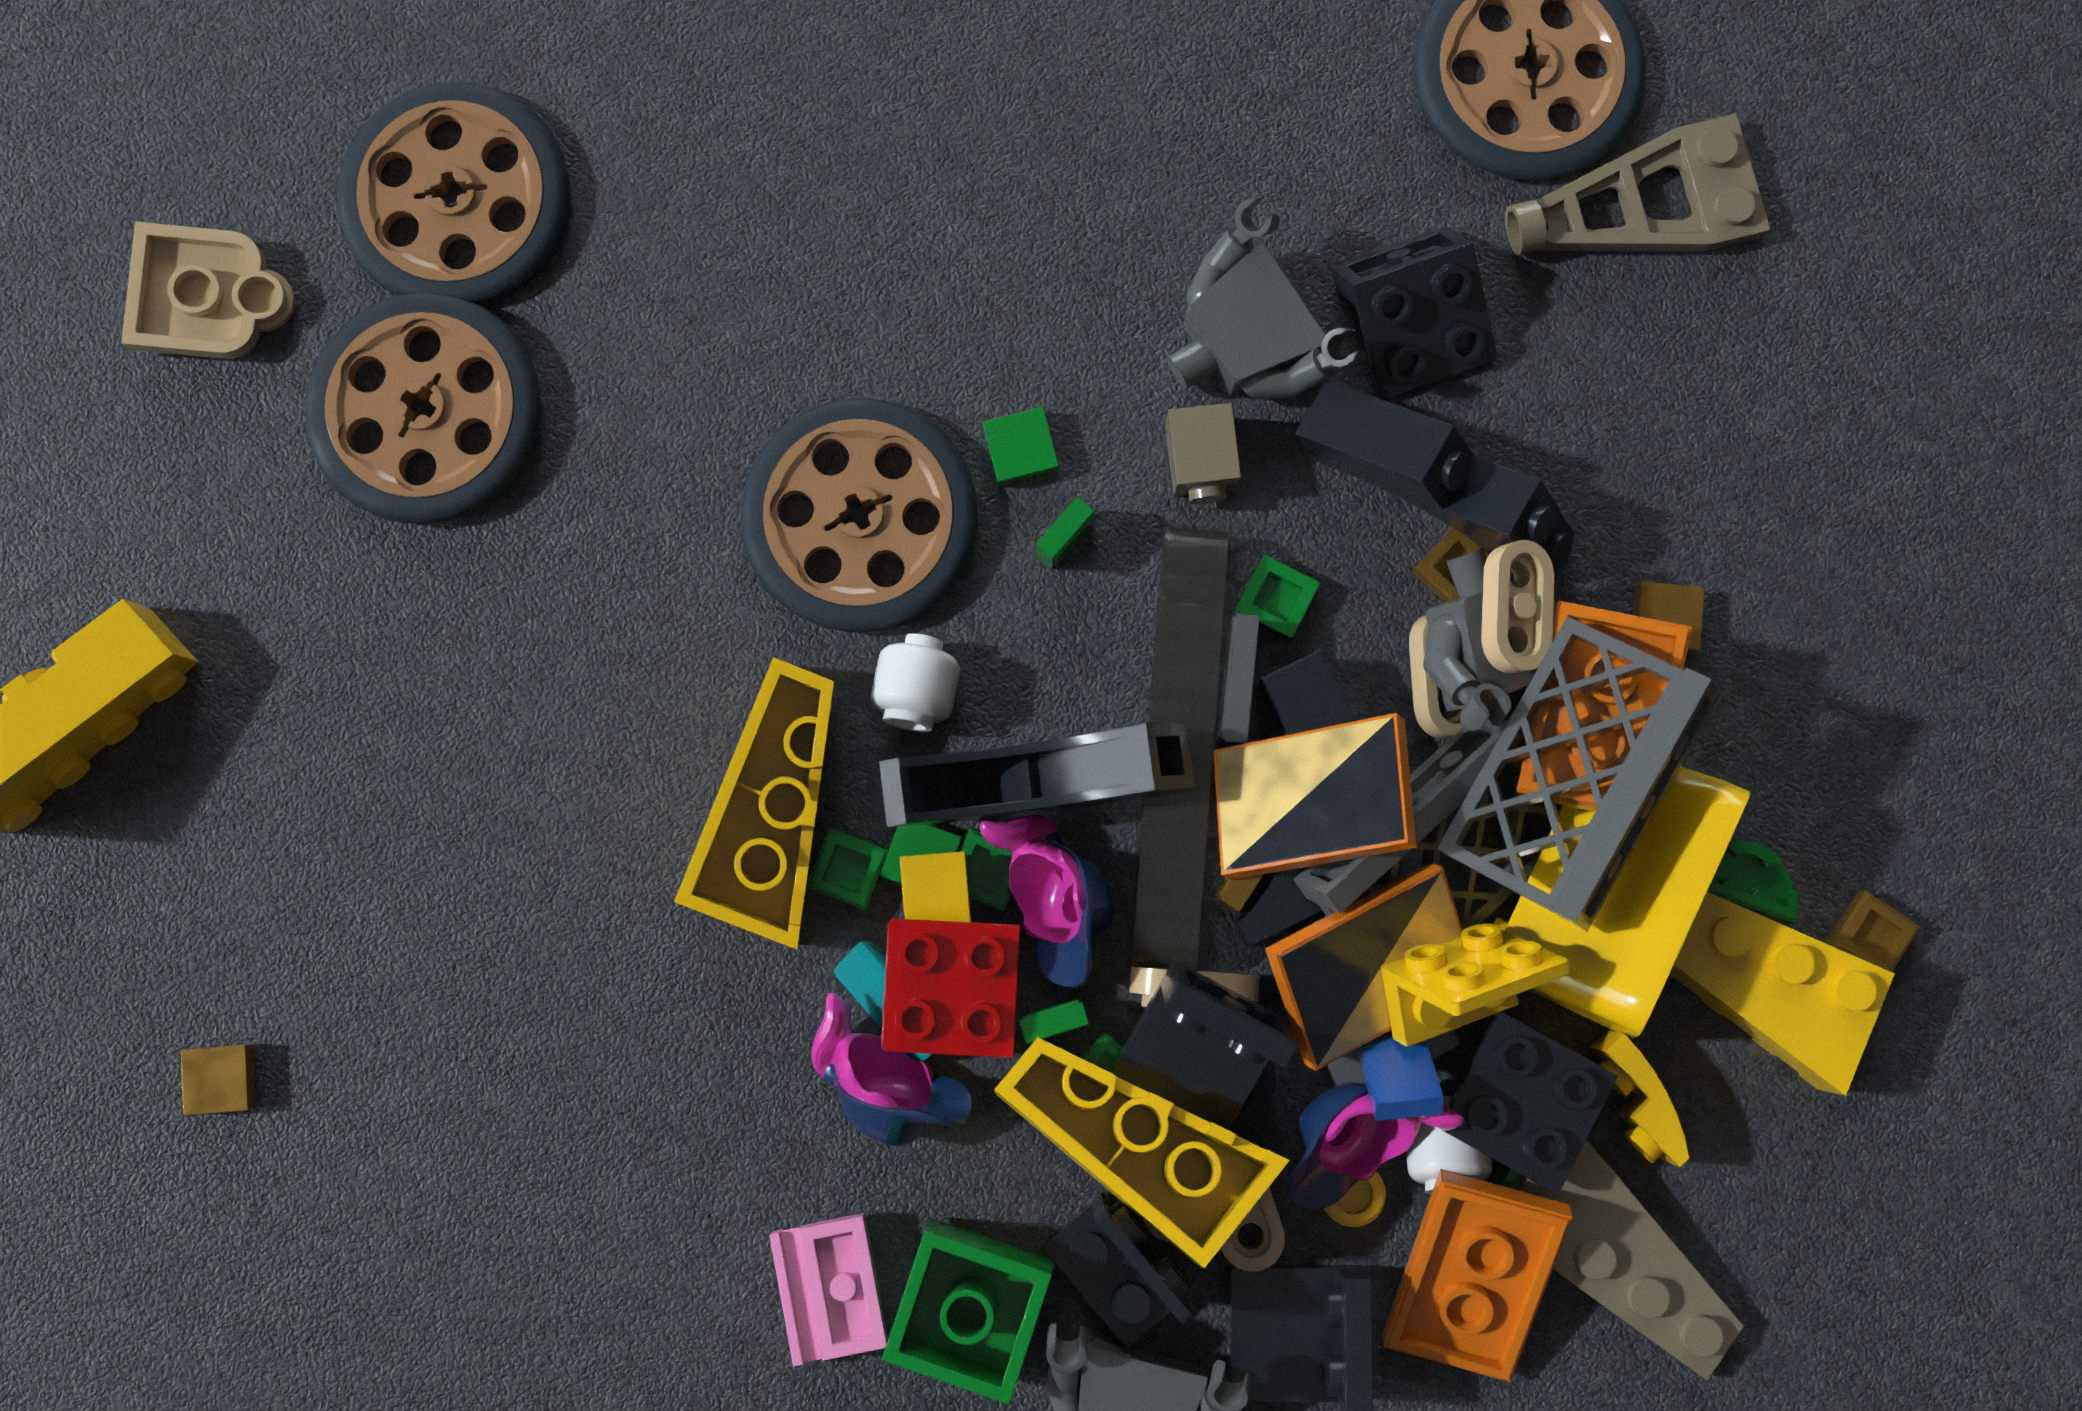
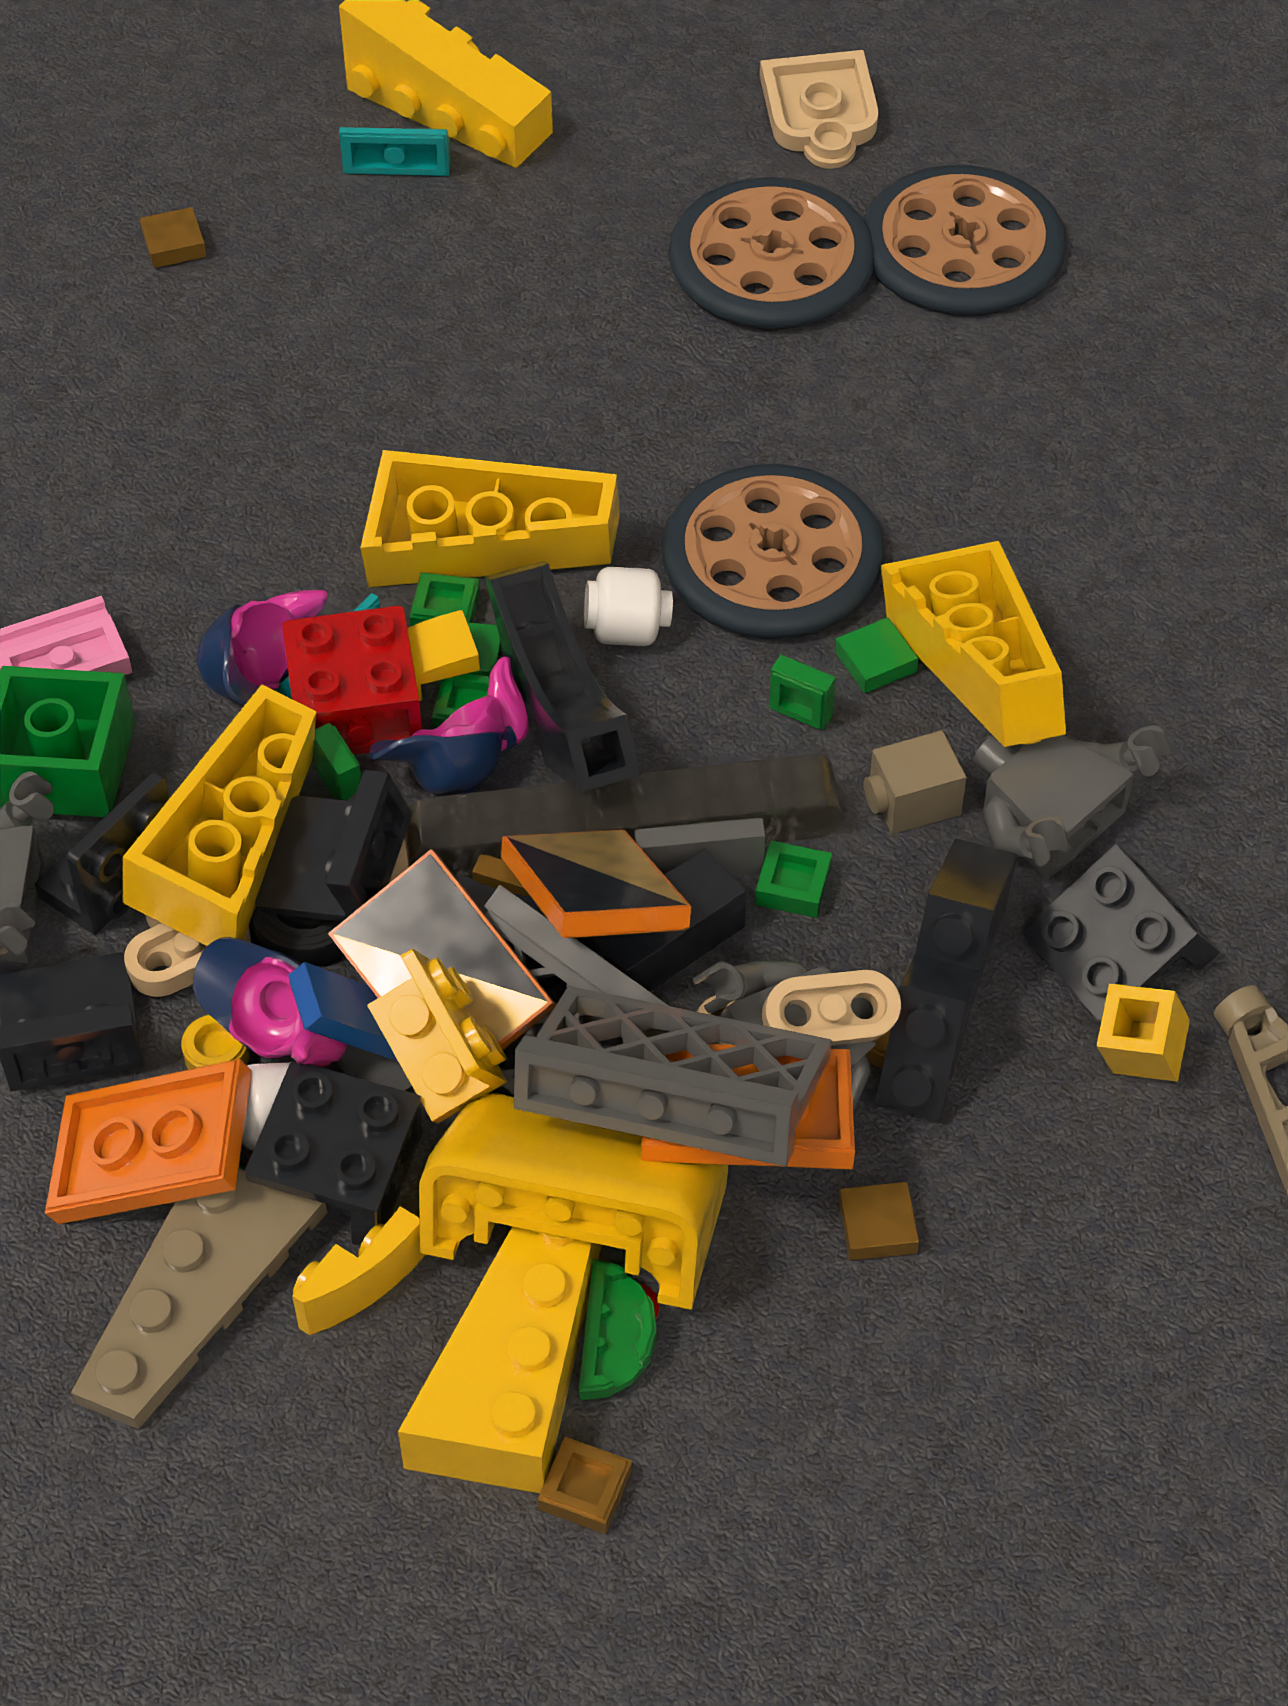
camera: 75 degrees right, 30 degrees down
(150, 797) = (395, 151): none -> teal slope
(1067, 338) = (979, 638): none -> yellow wedge
(1551, 324) = (1143, 1032): none -> yellow brick

